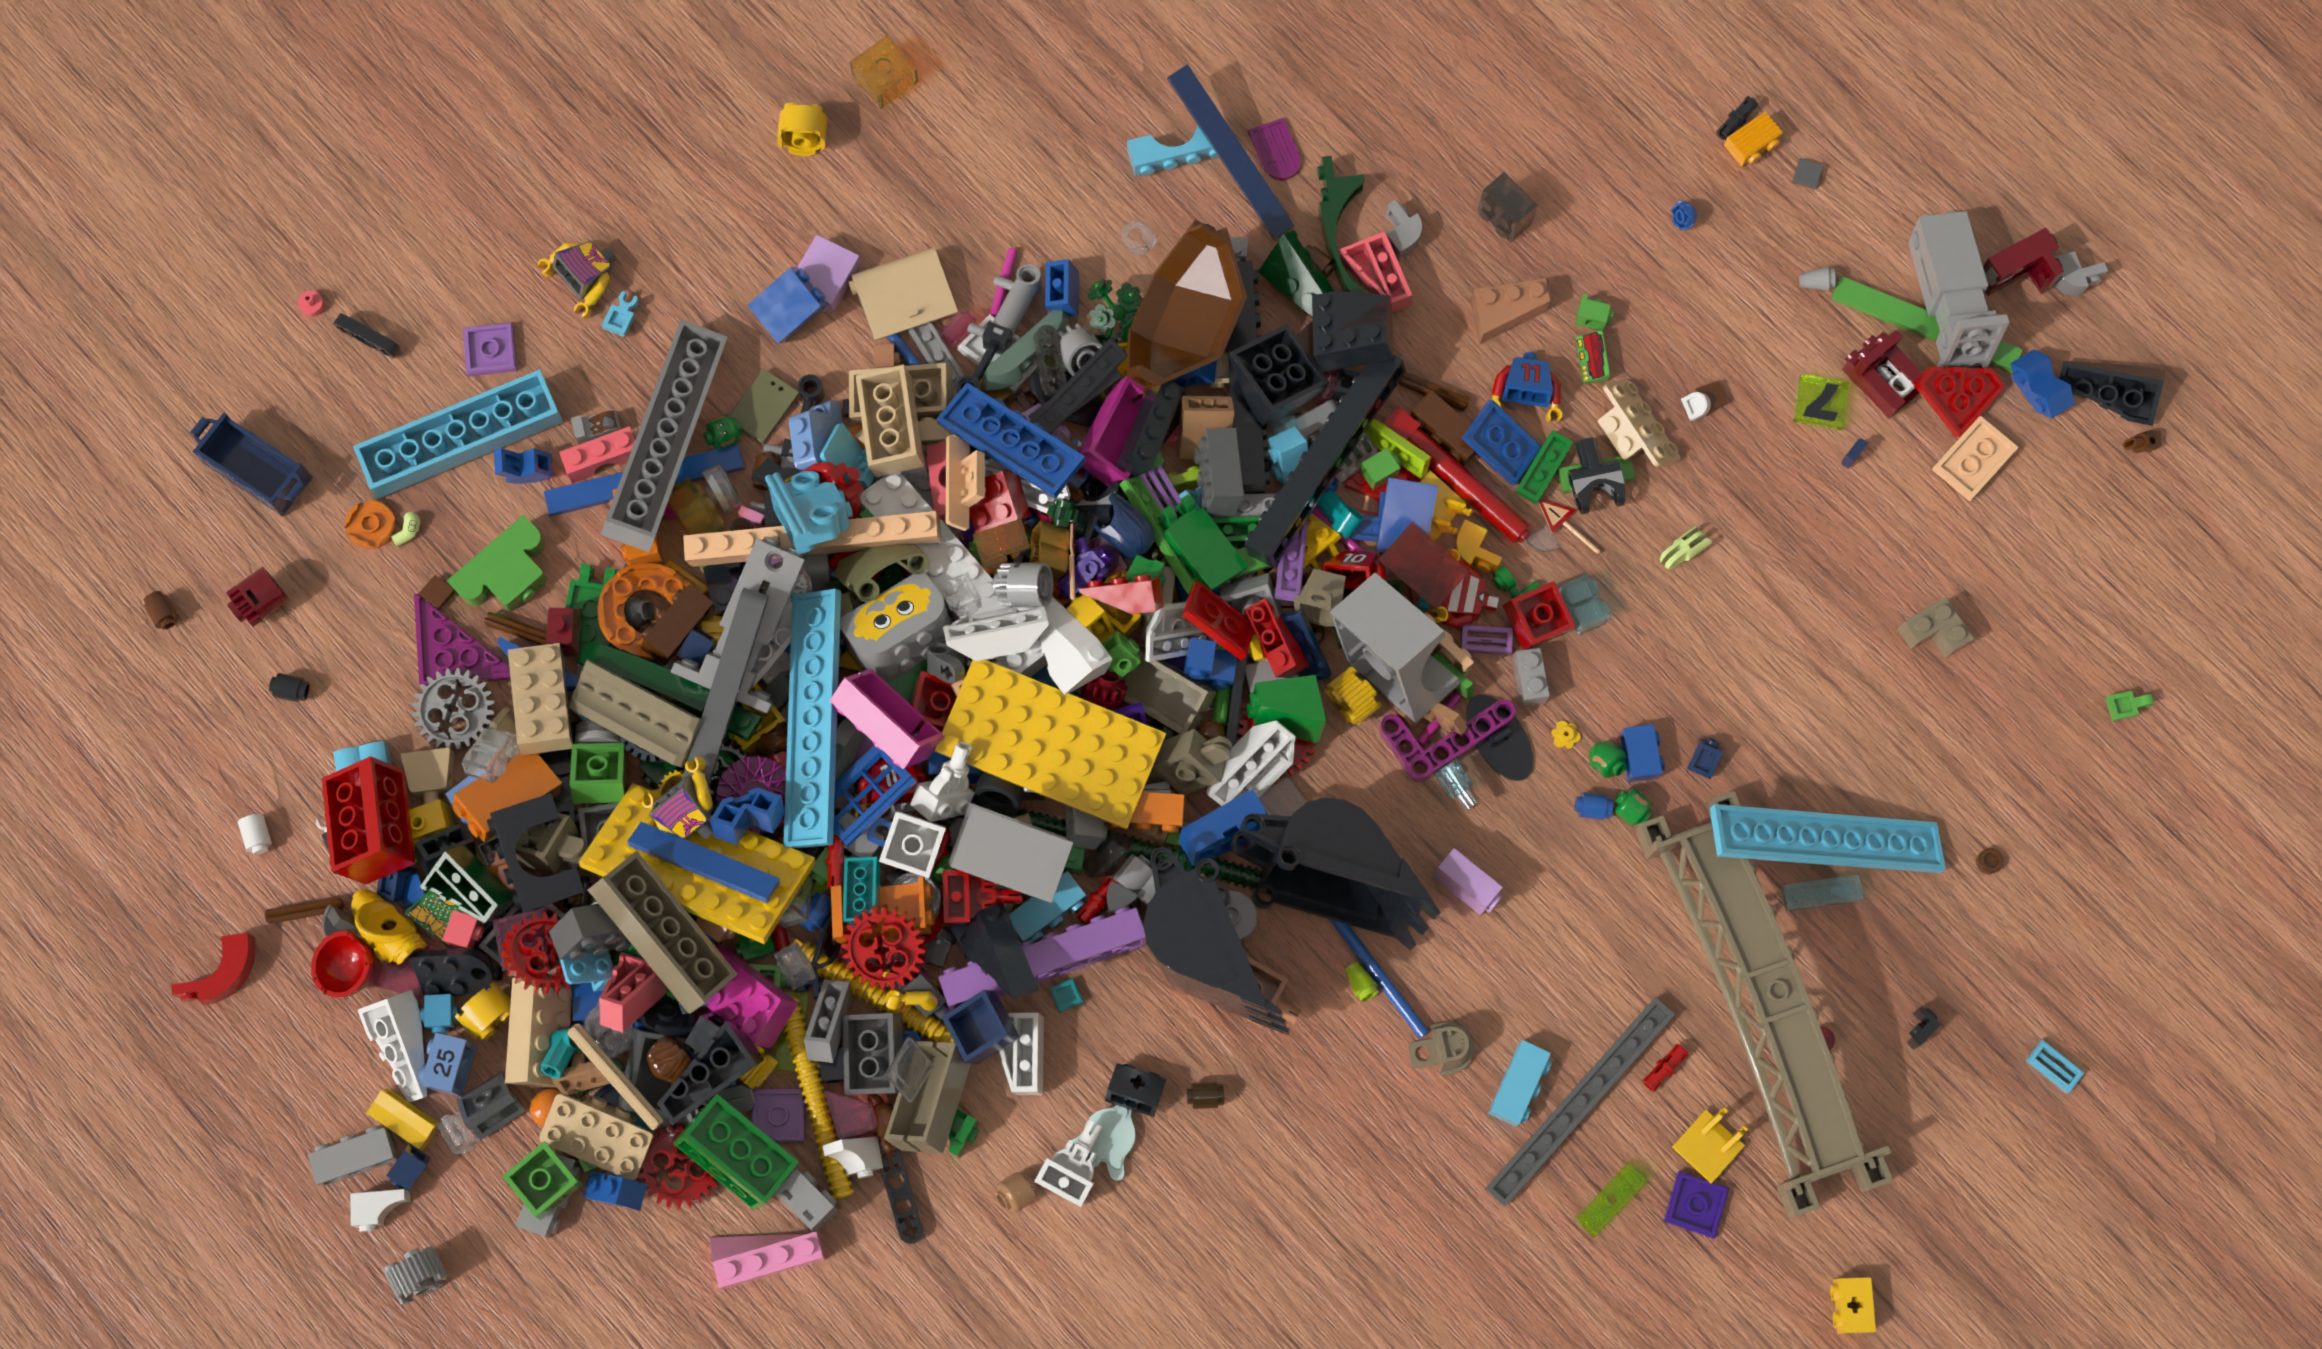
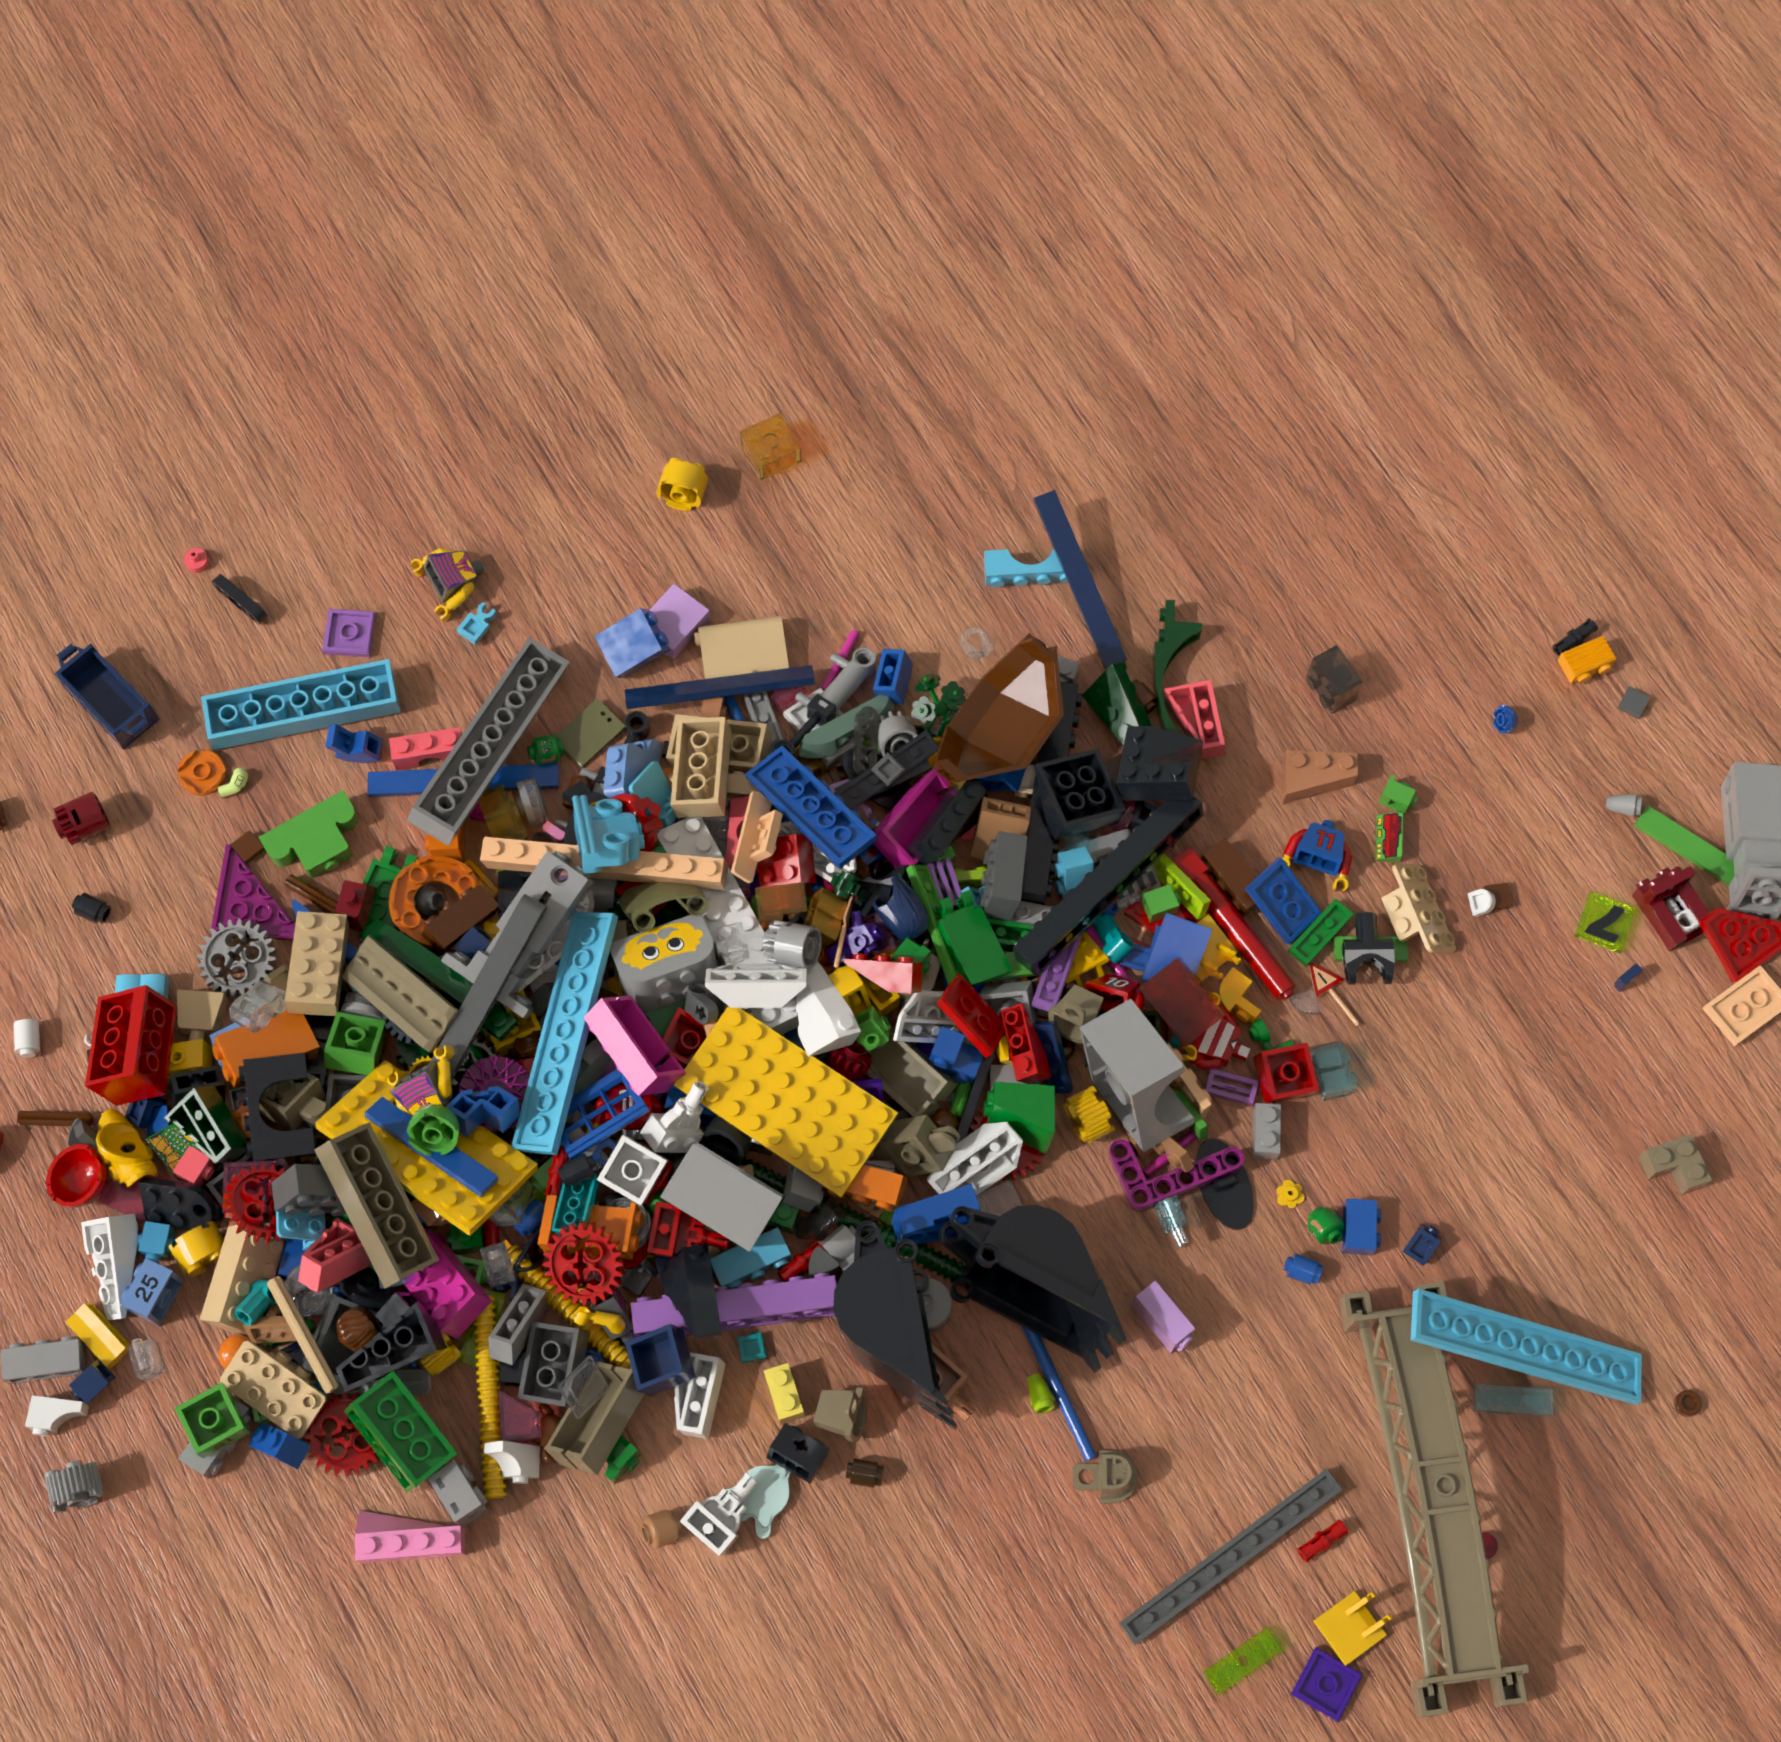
camera: 15 degrees right, 5 degrees down
(489, 1106) = (181, 1340): dark grey bracket -> none
(595, 426) = (429, 720): leg -> none
(704, 845) = (433, 1129): none -> bright green cylinder
(780, 1114) = (452, 1405): medium lavender tile -> none
(857, 855) = (578, 1170): none -> black brick
(887, 333) = (719, 687): none -> dark blue tile
(897, 1194) = (550, 1506): black beam -> none
(1079, 386) = (887, 769): none -> dark grey tile
(1108, 1034) = (784, 1393): none -> light yellow brick
(1171, 1041) = (842, 1412): none -> dark tan container
(1276, 149) = (1124, 585): magenta window -> none
(1407, 230) = (1232, 686): light grey brick -> none
(1424, 387) = (1219, 833): reddish brown axle -> none
(1520, 1083) = (1175, 1526): medium azure brick -> none
(1633, 807) = (1341, 1277): green head -> none
(1685, 548) = (1442, 1037): yellowish green arm -> none
(1920, 1032) = (1586, 1559): black bracket -> none
(2048, 1073) = (1699, 1604): medium azure tile -> none

